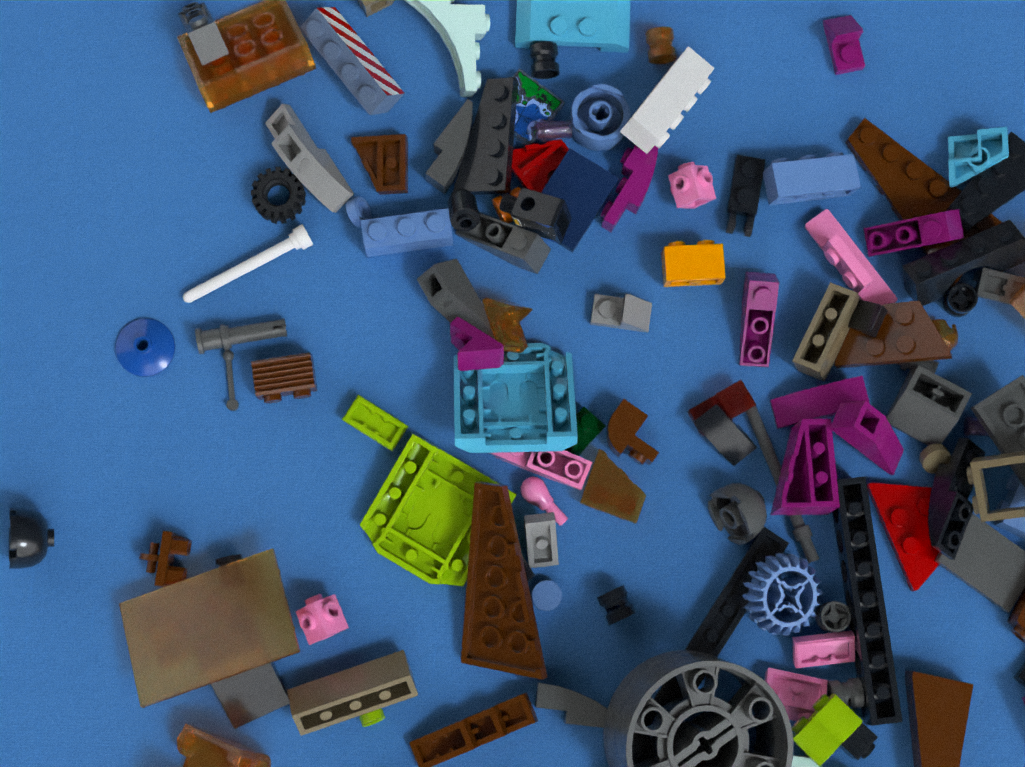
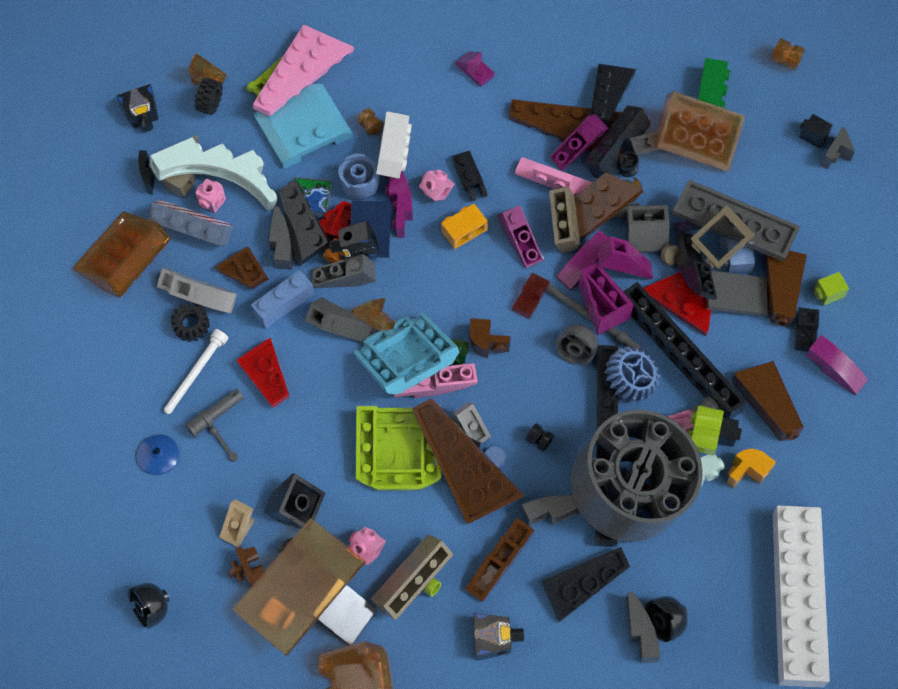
camera: 25 degrees left, 15 degrees down
(185, 497) = (237, 523): none -> tan slope
(203, 32) = (89, 252): slope -> none
(269, 512) = (294, 502): none -> black slope
(284, 377) = (257, 421): reddish brown brick -> none
(331, 316) = (265, 372): none -> red wing
(358, 210) = (244, 303): medium blue tile -> none
(375, 423) = (329, 417): lime plate -> none
(398, 35) = (210, 195): none -> bright pink brick
(463, 210) = (309, 267): black brick -> none
(475, 347) = (364, 337): magenta slope -> none
(537, 493) = (452, 402): bright pink piece -> none
(544, 60) = (306, 164): black wheel -> none
(552, 129) = (335, 197): clear purple pin -> none
(612, 491) = (496, 376): clear orange wing -> none
(621, 313) = (440, 276): light grey slope -> none
(725, 434) = (542, 307): black slope -> none
(811, 178) = (502, 145): medium blue brick -> none
(823, 649) = (676, 393): bright pink plate -> none
(837, 614) = (670, 367): dark grey wheel -> none
(868, 318) = (583, 197): black slope -> none
(976, 153) = (586, 83): medium azure slope -> none

